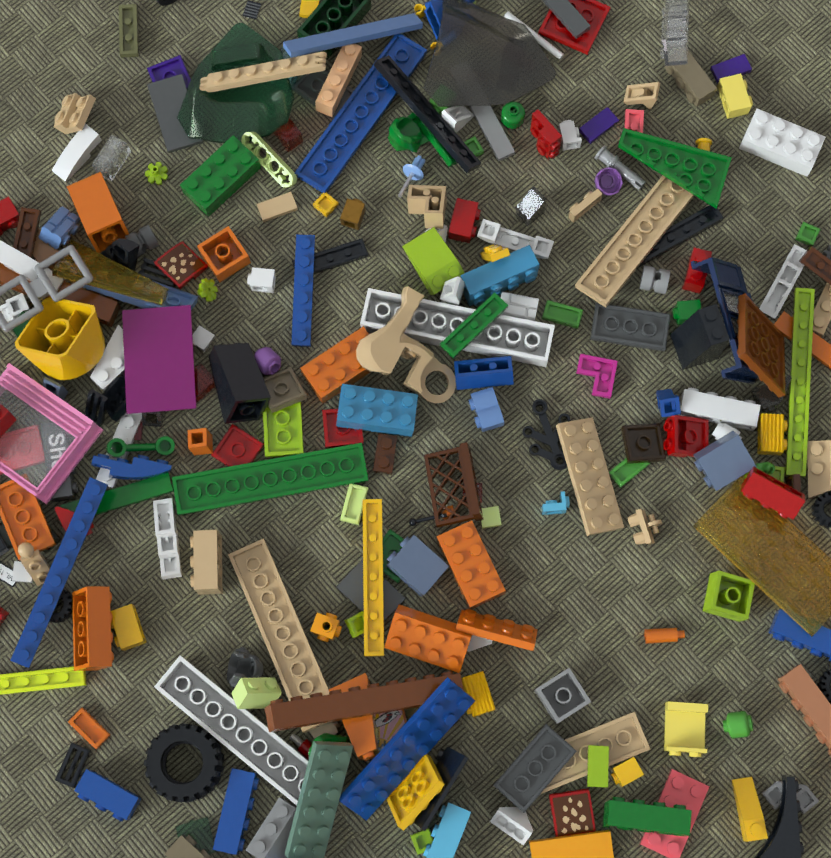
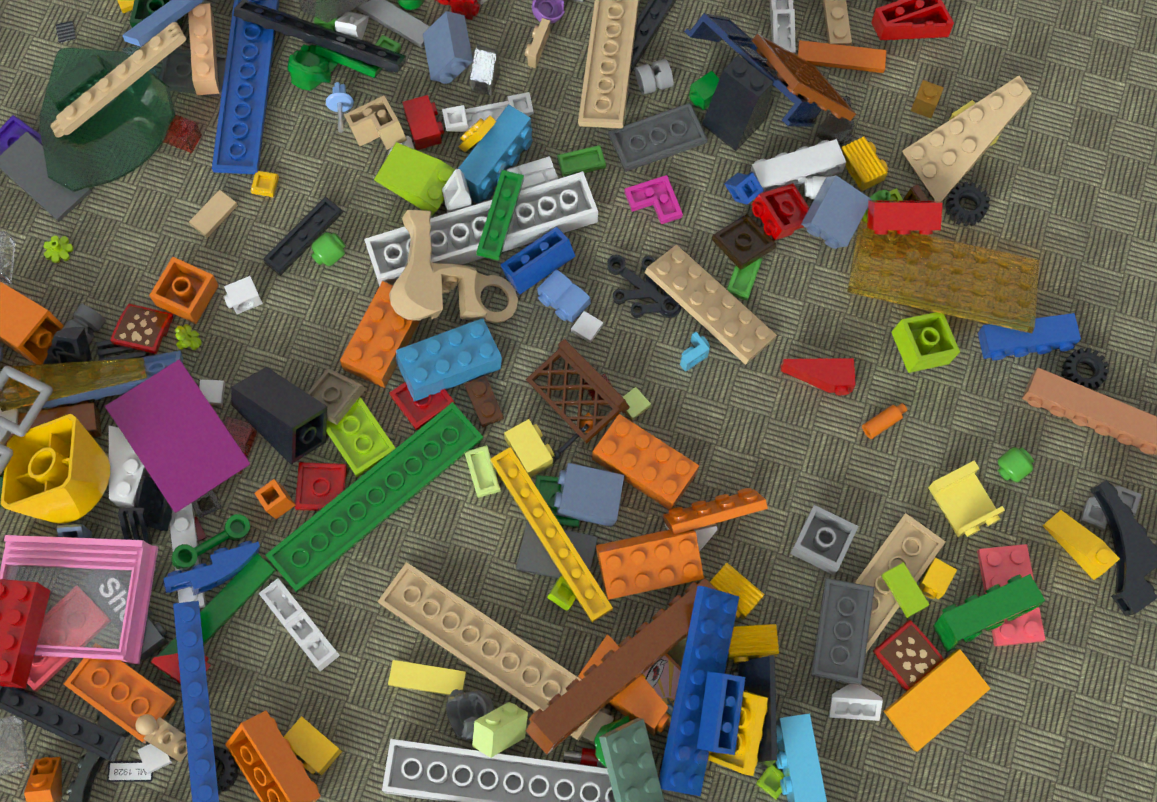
camera: 35 degrees left, 5 degrees down
(206, 562) = (359, 622): tan brick -> none
(220, 176) = (132, 213): green brick -> none
(230, 626) = (426, 677): none -> light yellow tile
(267, 162) = (175, 169): yellowish green beam -> none
(267, 360) = (299, 373): medium lavender head -> none
(303, 290) = (294, 282): blue plate -> none
(319, 624) = (532, 624): light orange brick -> none
(341, 279) = (328, 249): none -> bright green head
(353, 213) = (300, 177): pearl gold brick -> none
(395, 507) = (529, 448): none -> light yellow brick
(410, 774) = (721, 713): none -> blue brick
(467, 737) = (753, 642): none -> yellow brick
(491, 441) = (587, 327): none -> white tile
(514, 174) = (447, 47): none -> sand blue brick
(642, 577) = (827, 374): none -> red slope
(646, 536) = (803, 332): tan hips -> none
(694, 279) = (690, 50): red brick -> none
(800, 383) = (861, 99): lime plate -> none

